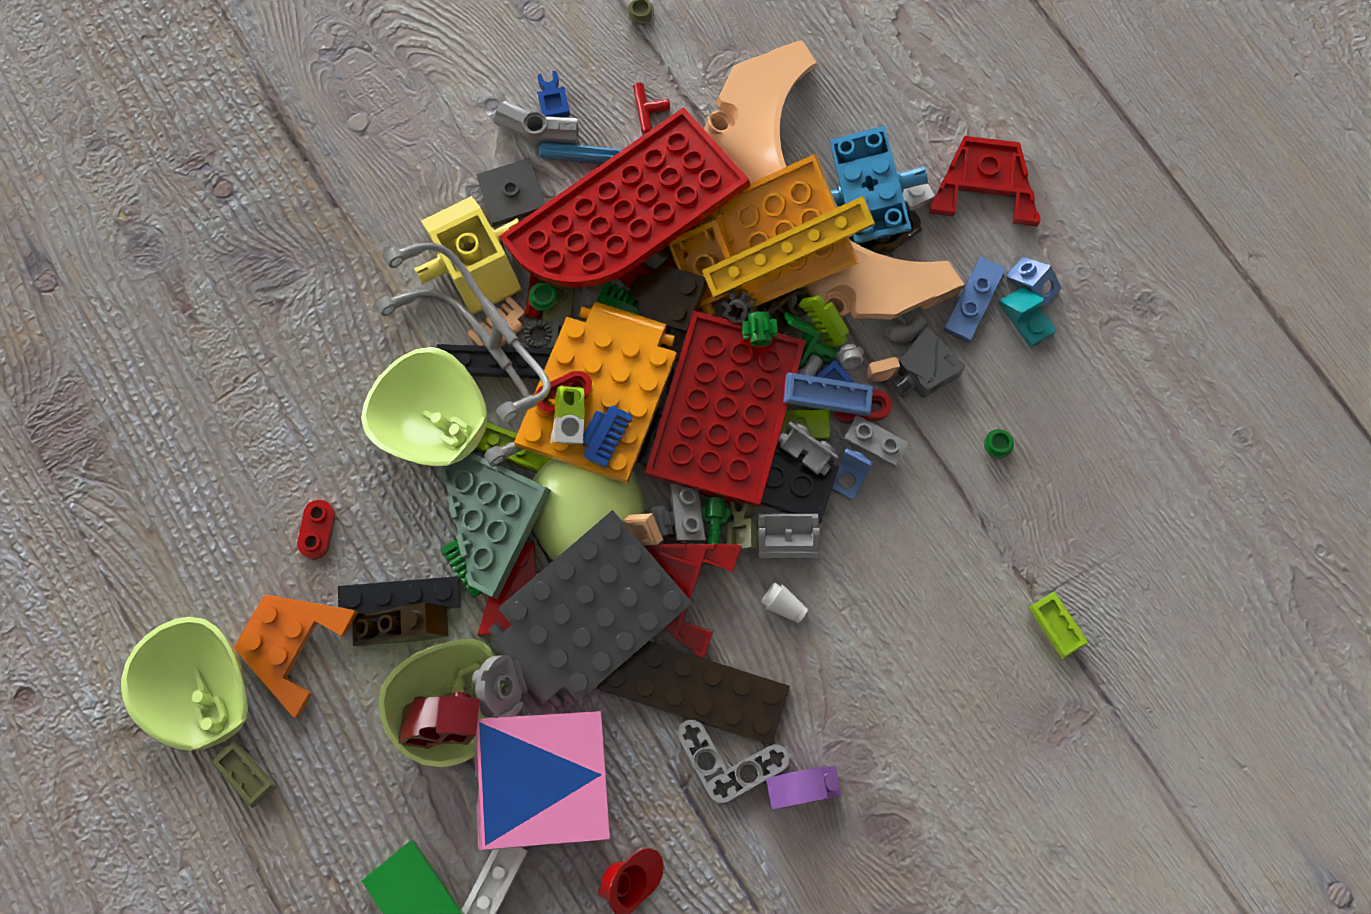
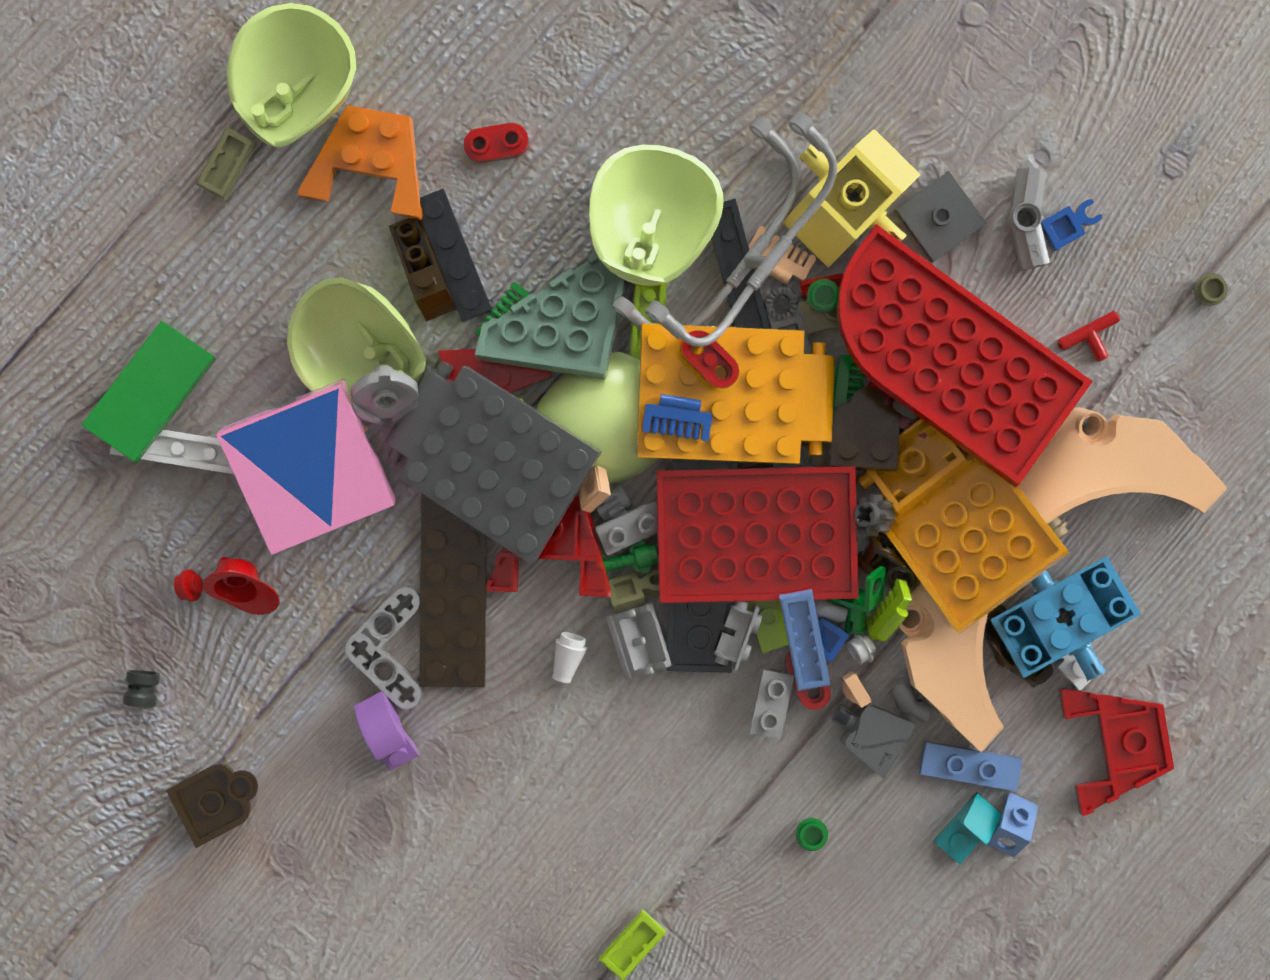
camera: 75 degrees right, 15 degrees up
(439, 720) = (329, 346): dark red brick -> none
(568, 416) = (680, 375): leg -> none
(576, 153) = (1010, 278): dark azure axle -> none
(759, 329) = (851, 546): green gear -> none
(789, 247) = (952, 553): yellow plate -> none
(856, 465) = (739, 691): medium blue bracket -> none

